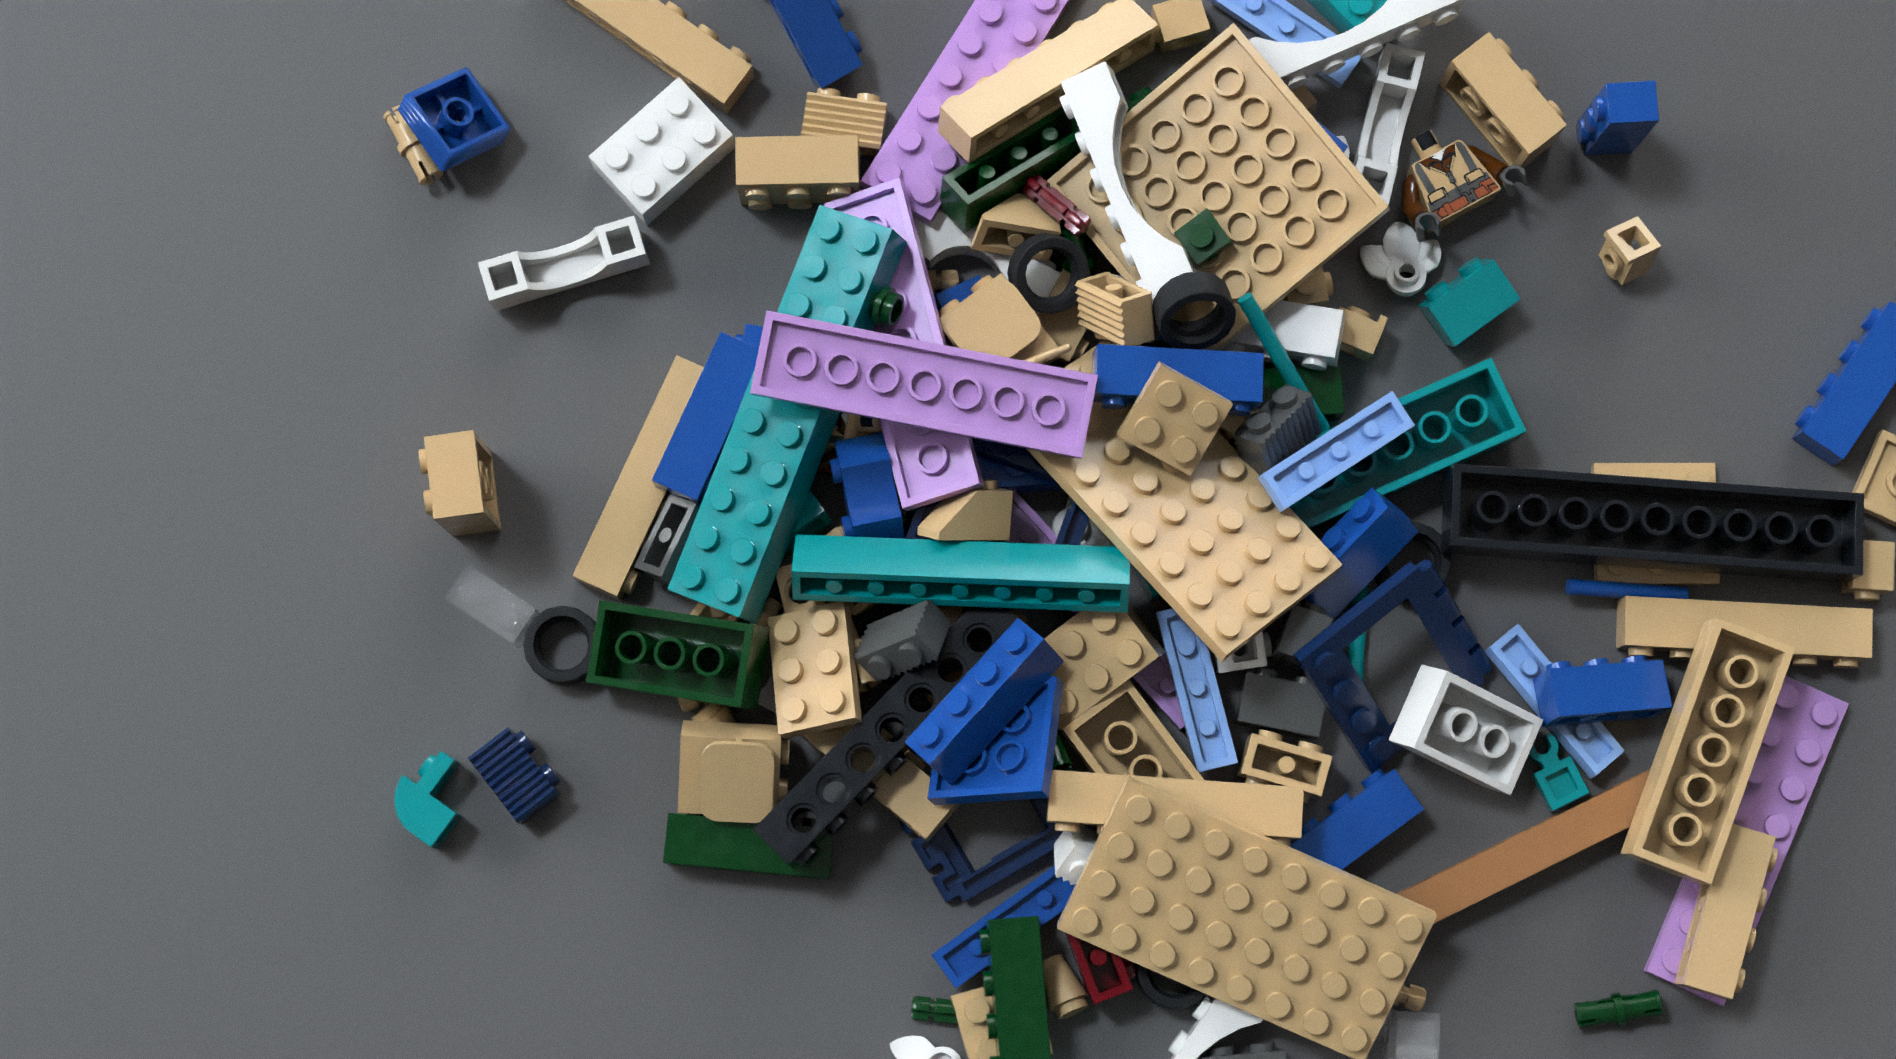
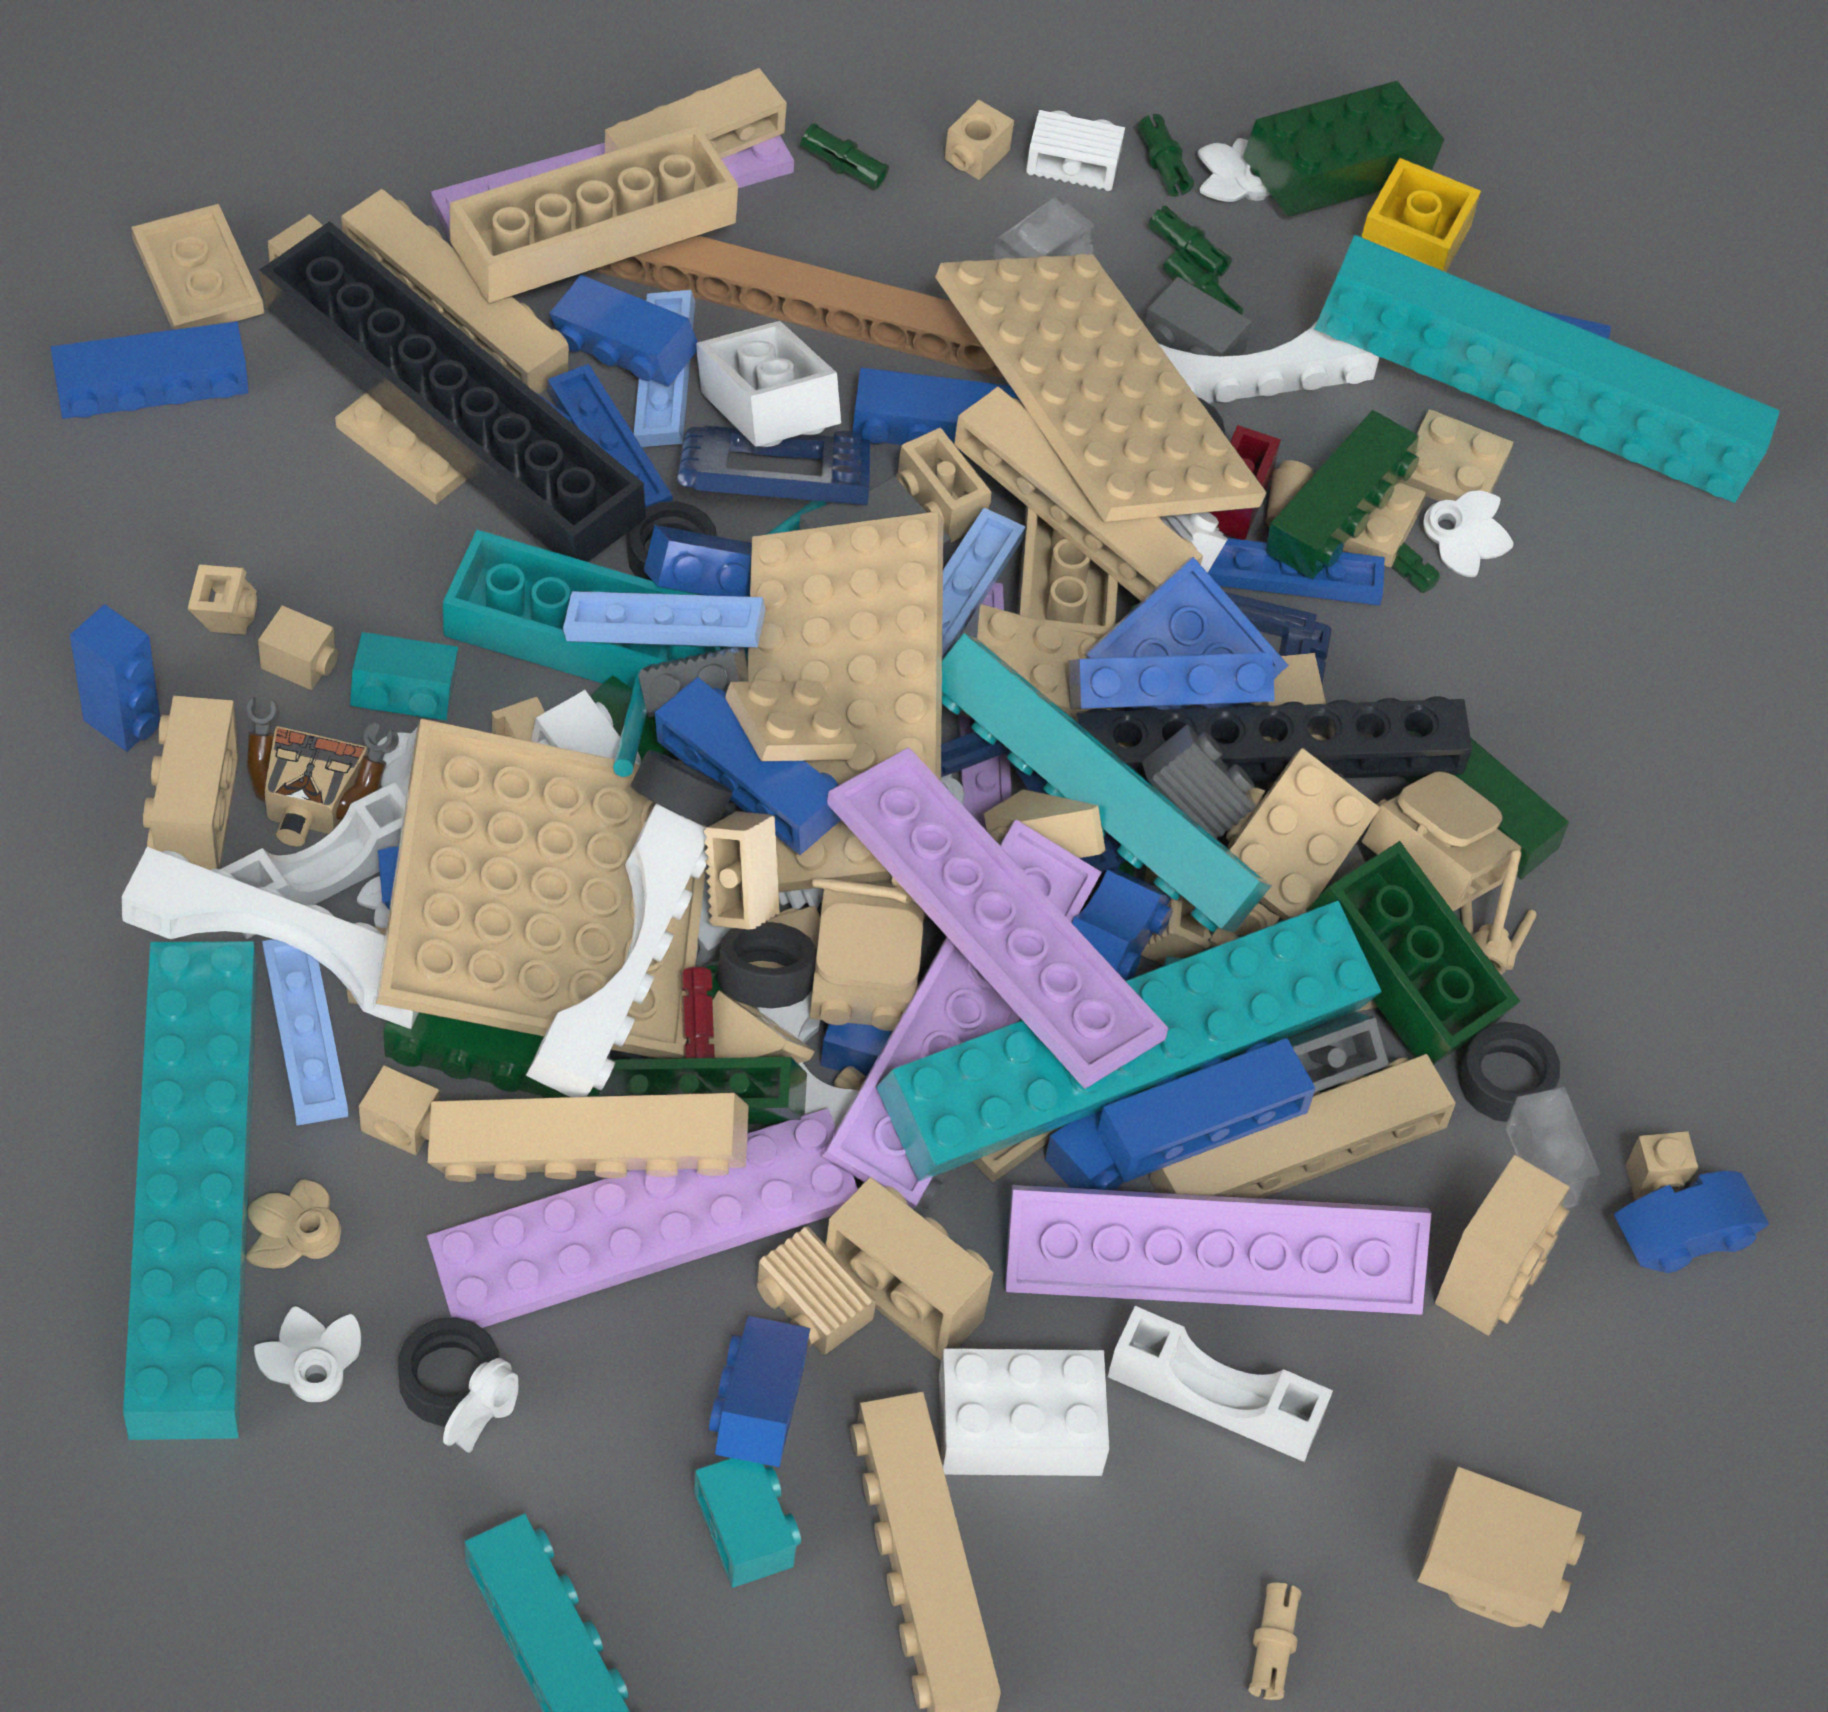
camera: 145 degrees left, 25 degrees down
(322, 301) = (1502, 1550): none -> tan brick
(371, 630) = (1705, 1218): none -> blue brick
(417, 654) = (1661, 1162): none -> tan brick
(417, 801) = (1755, 1048): teal brick -> none
(433, 113) = (1192, 1590): blue brick -> none
(516, 775) = (1646, 1004): dark blue brick -> none
(635, 349) = (1217, 1249): none -> lavender plate
(646, 730) = (1493, 937): none -> tan plant
(886, 307) = (955, 1030): dark green plate -> none
(1203, 238) = (602, 856): dark green plate -> none
(1530, 606) = (595, 414): none -> blue plate
(1553, 267) = (297, 648): none -> tan brick
(1558, 779) = (721, 315): teal plate -> none

